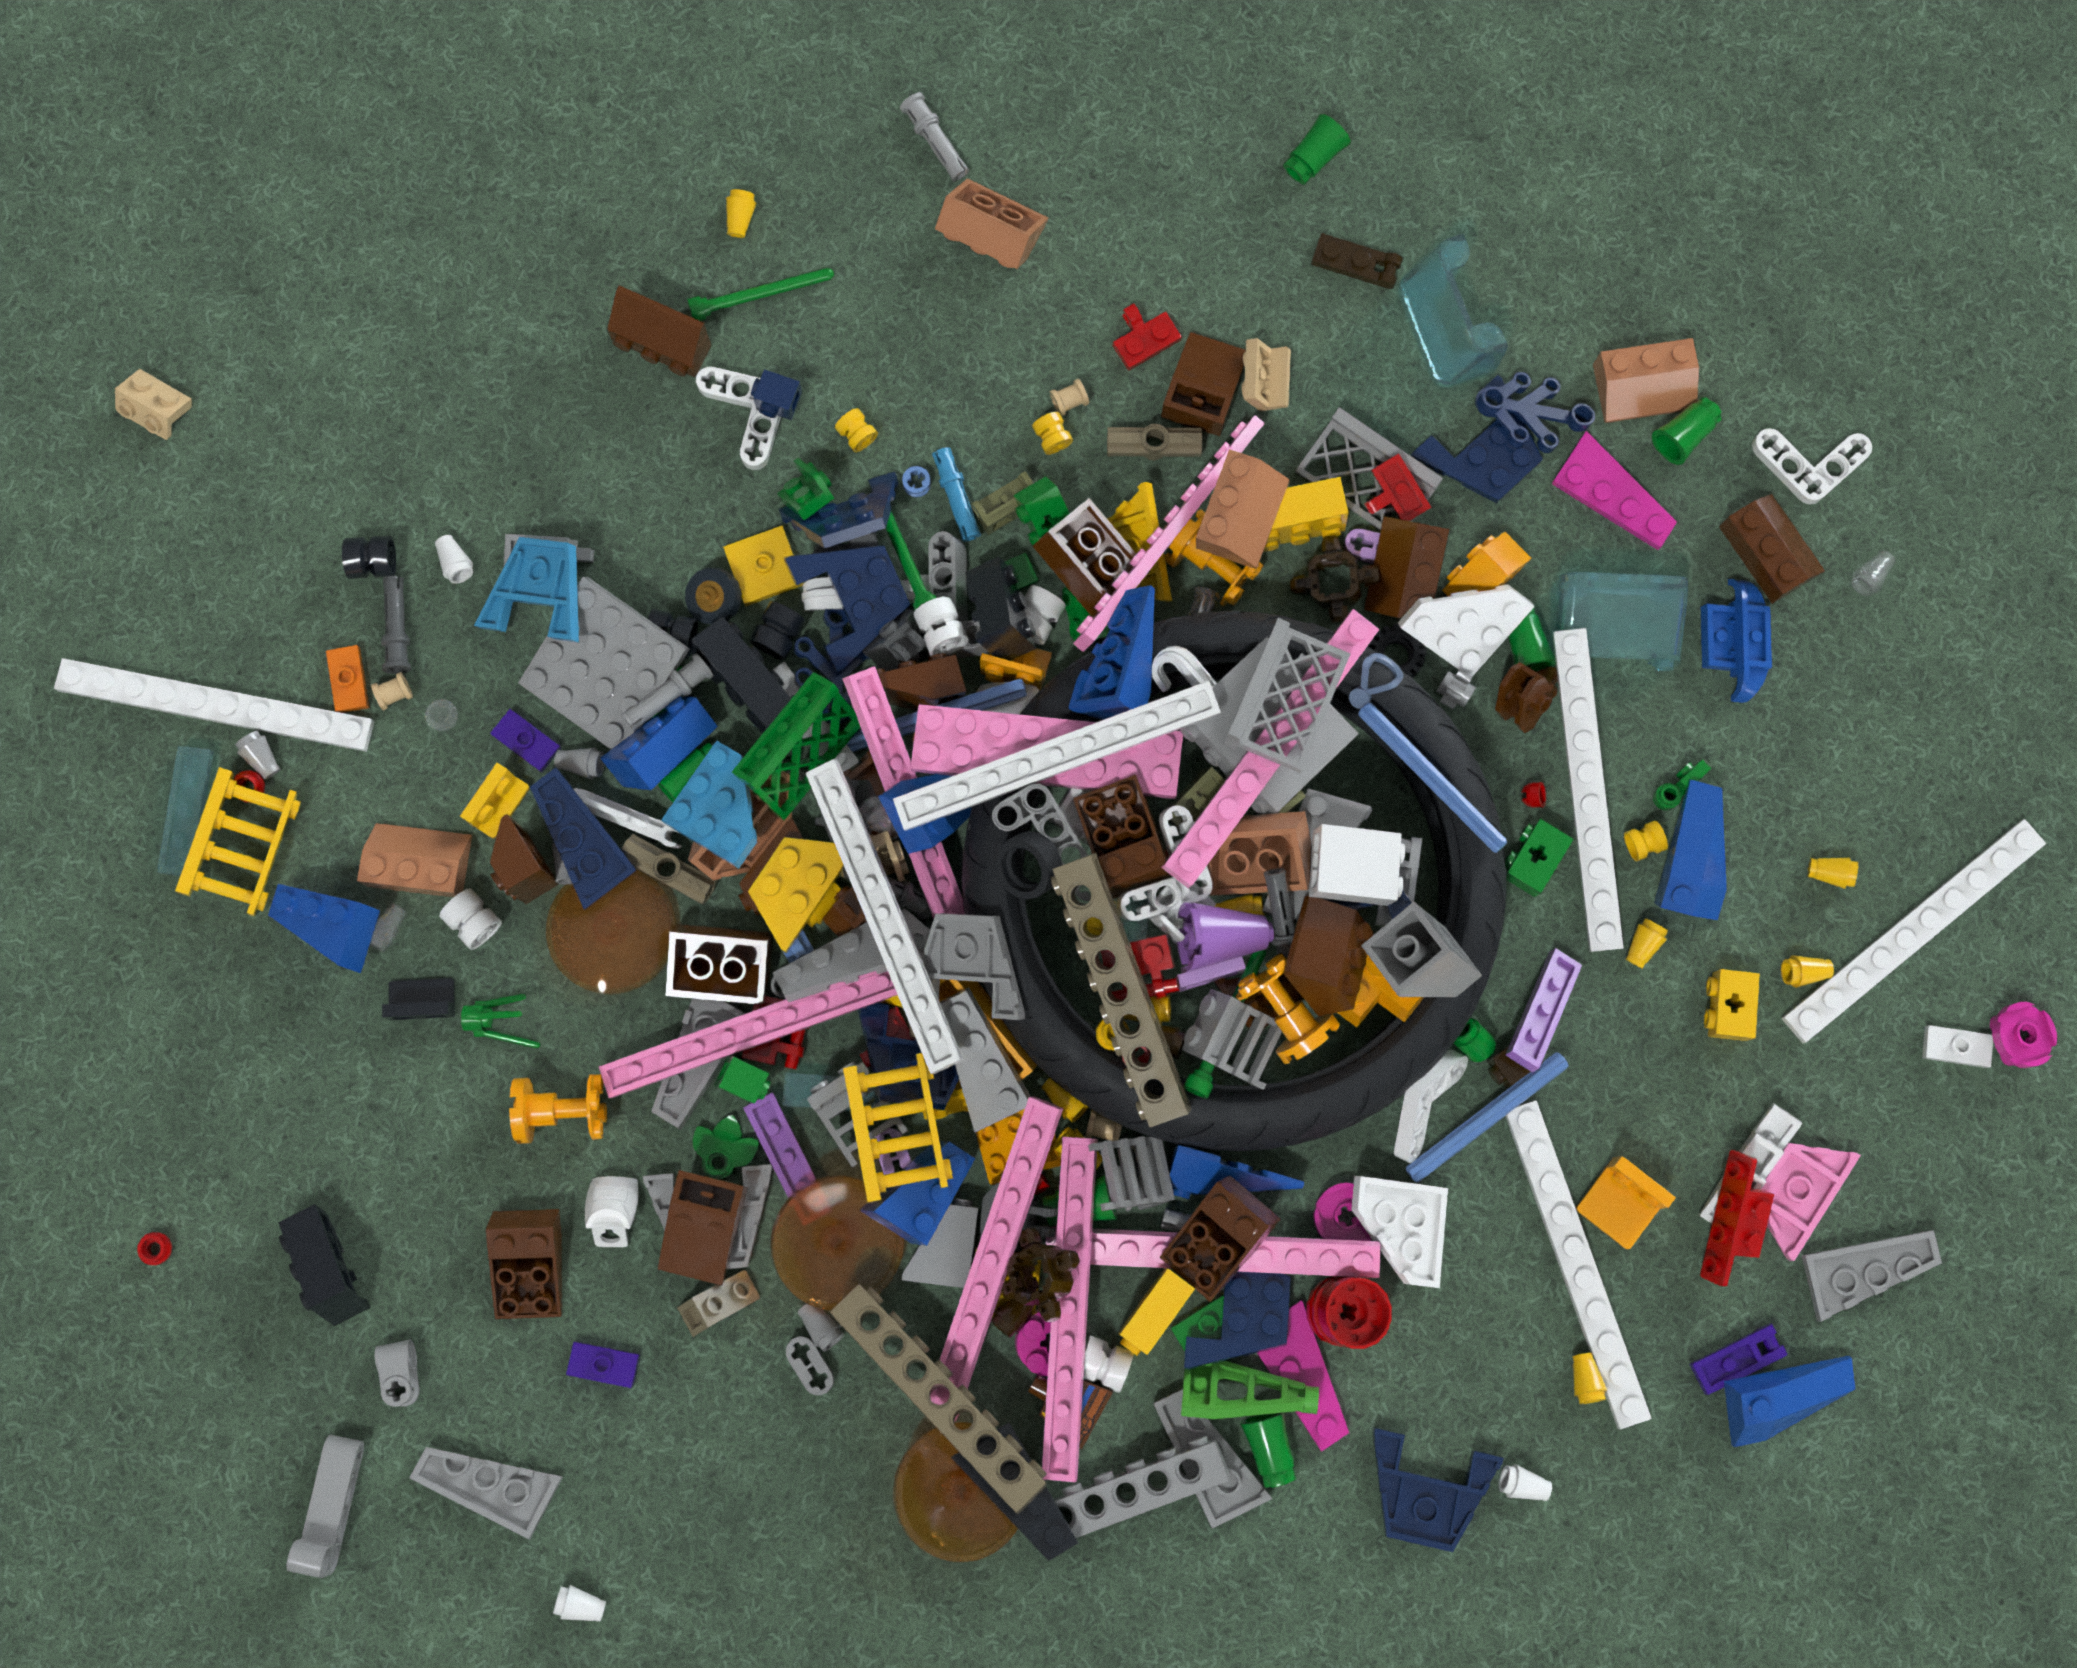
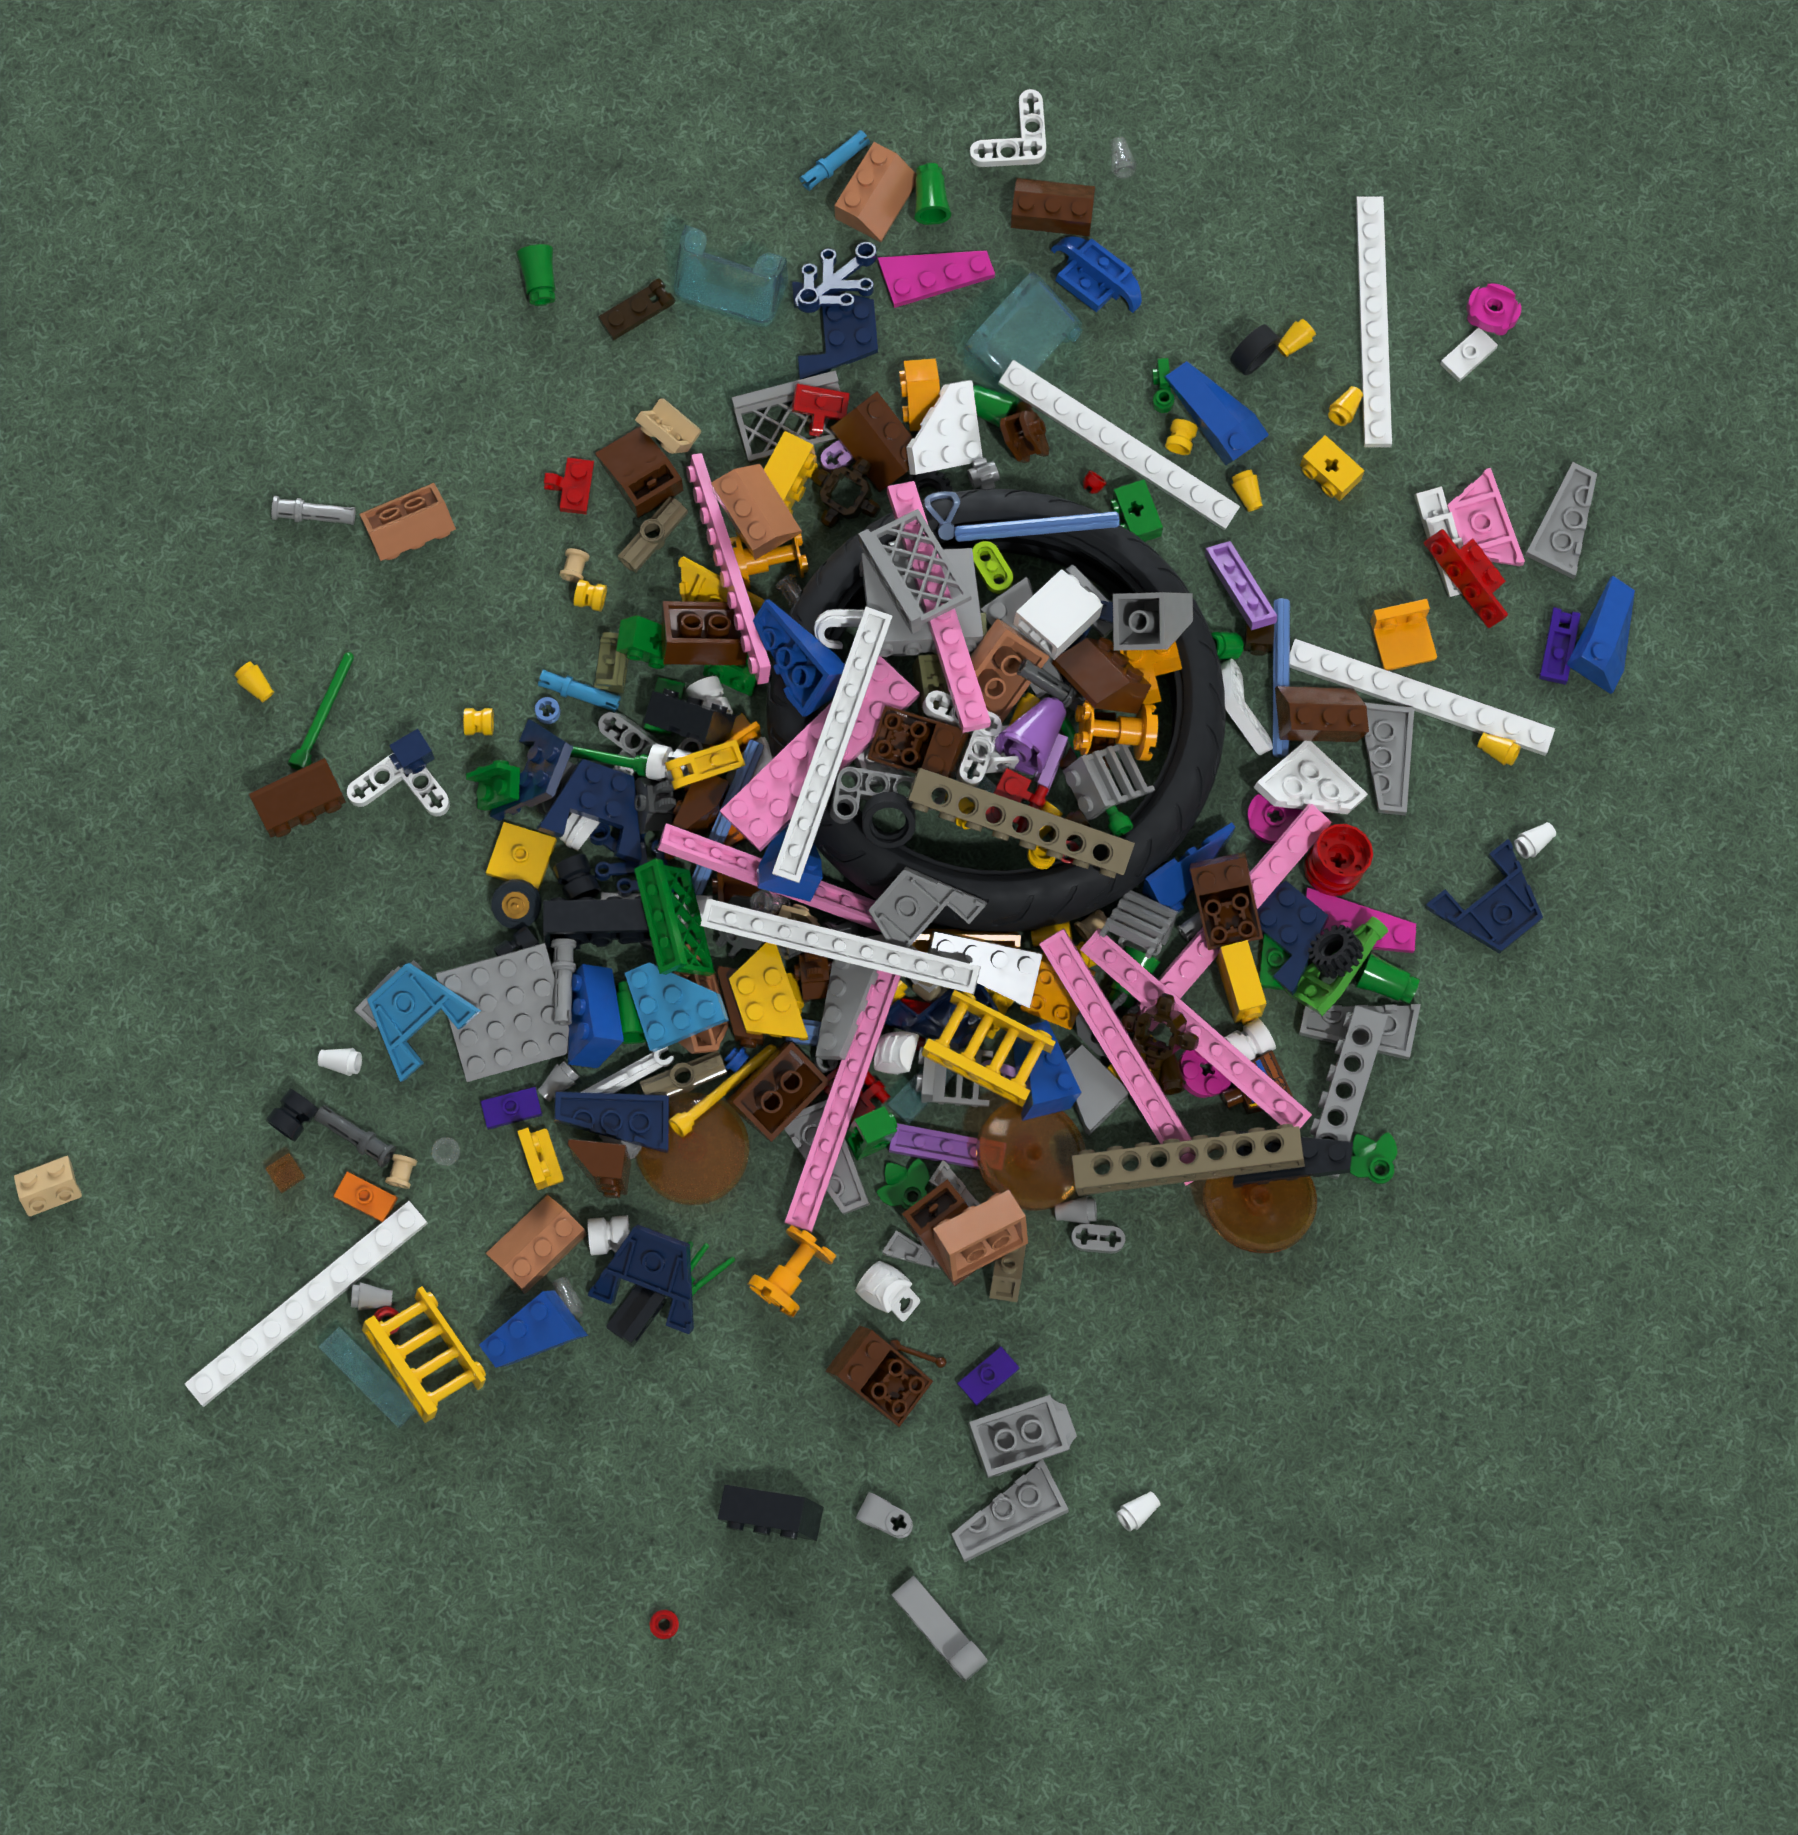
camera: 50 degrees left, 5 degrees down
(315, 593) = (285, 1173): none -> clear orange plate
(468, 986) = (656, 1264): none -> dark blue wing
(567, 1442) = (1022, 1435): none -> light grey slope
(568, 1256) = (940, 1361): none -> reddish brown hinge
(623, 903) = (683, 1122): none -> yellow piece
(715, 1257) = (981, 1234): none -> nougat slope
(722, 902) = (736, 1059): none -> blue plate
(833, 1042) = (895, 1052): none -> white piece
(961, 657) = (705, 764): none -> yellow plate
(1090, 1562) = (1372, 1154): none -> green plate
(1254, 1395) = (1341, 961): none -> black tyre
(1358, 768) = (993, 568): none -> lime plate
(1481, 1182) = (1320, 714): none -> reddish brown slope
(1499, 1274) = (1390, 755): none -> light grey wing
(1645, 319) = (825, 167): none -> dark azure pin
(1788, 842) = (1255, 349): none -> black tyre

